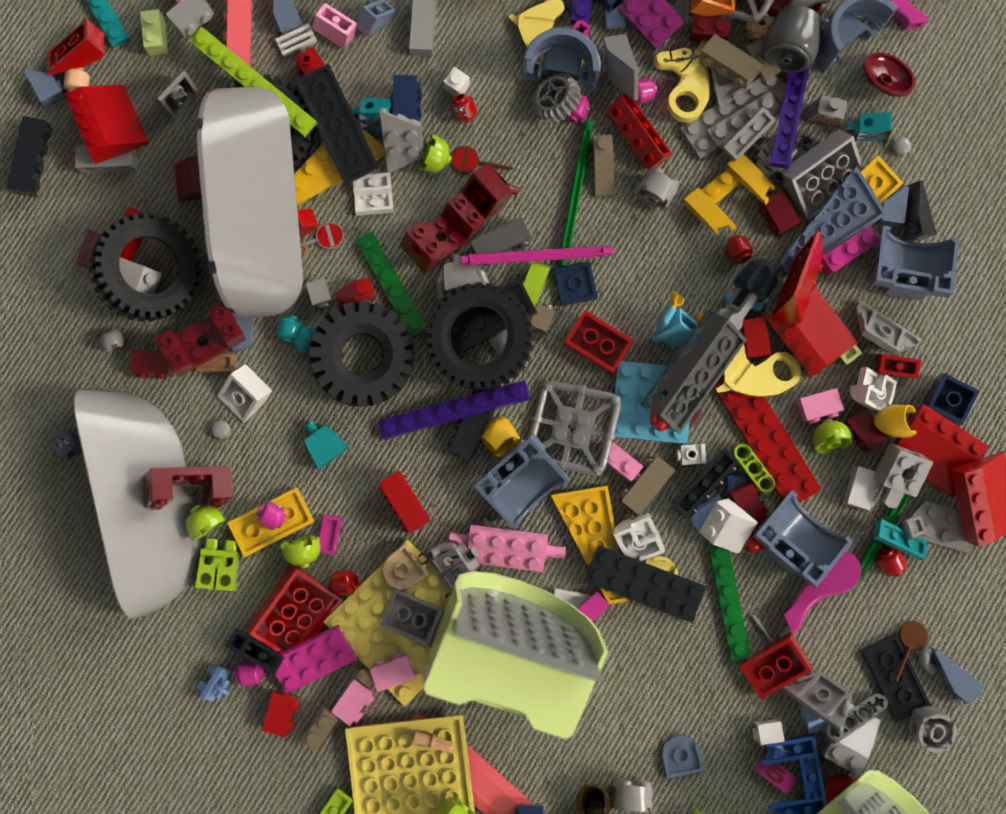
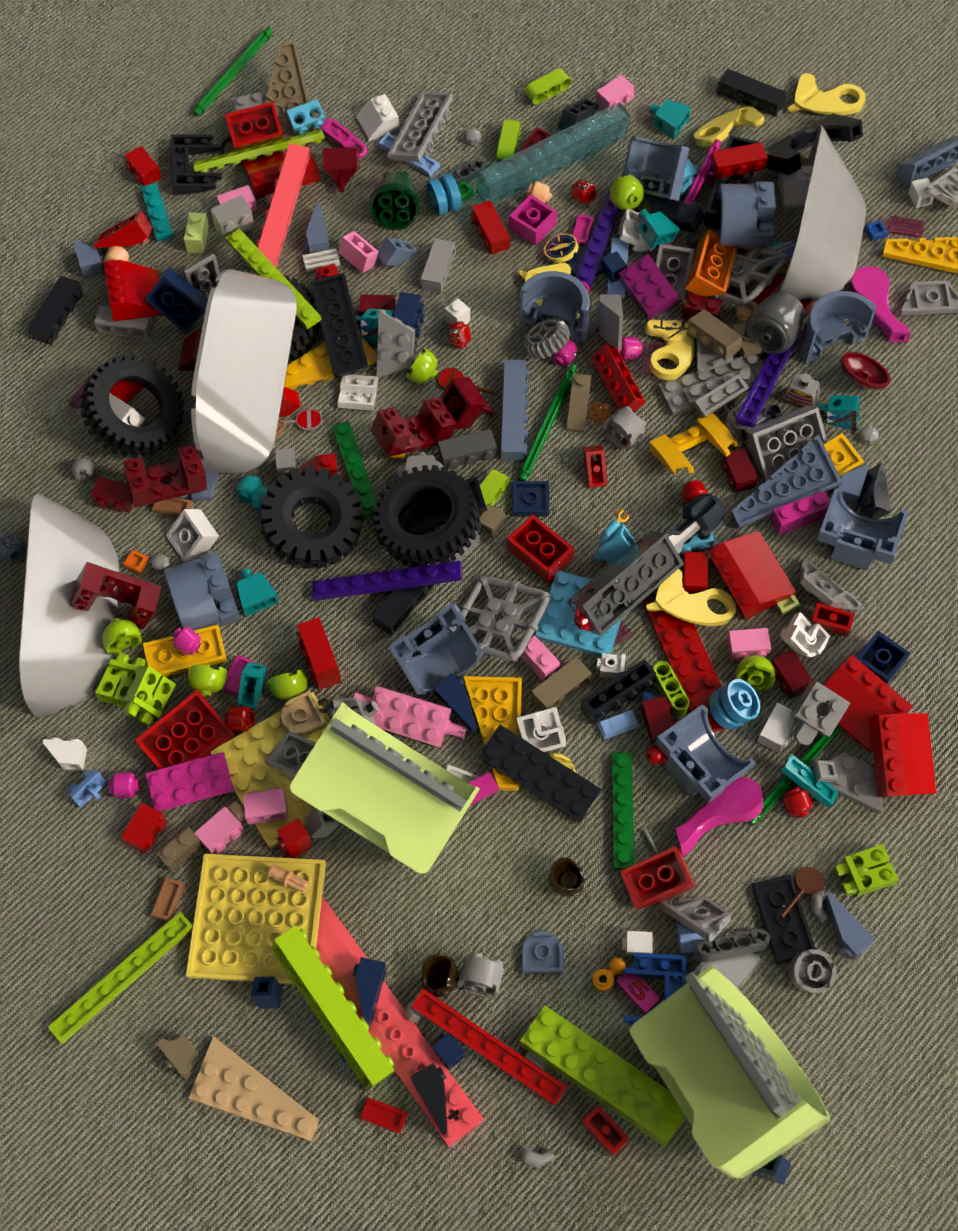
camera: 15 degrees right, 20 degrees down
(158, 128) = (177, 300): none -> dark blue brick
(184, 653) = (68, 754): none -> white slope
(195, 432) = (136, 562): none -> orange tile
(248, 580) = (147, 695): none -> lime hips
(254, 651) = (133, 759): black slope -> none
(267, 453) = (197, 589): none -> sand blue piece
(321, 776) = (167, 899): none -> medium nougat tile
(347, 541) = (254, 678): none -> teal torso
(368, 88) = (384, 302): none -> dark red slope
(382, 540) = (288, 685): none -> lime cylinder
(425, 703) = (294, 839): none -> red brick
(500, 436) = (423, 610): yellow piece -> none
(538, 186) = (514, 410): none -> sand blue brick
(540, 255) = (492, 462): dark pink piece -> none
(547, 520) = (454, 696): none -> dark blue slope
(626, 170) = (600, 411): none -> clear orange tile
(633, 235) = (595, 466): none -> red slope
(691, 683) = (566, 877): none -> dark brown hair
(728, 526) = (633, 731): white slope -> none
(752, 756) = (616, 967): none -> light orange plate
(800, 282) = (745, 520): red slope -> none
(819, 477) = (734, 704): none -> dark azure wheel
(892, 421) = (816, 663): yellow piece -> none
(965, 618) = (866, 871): none -> lime hips

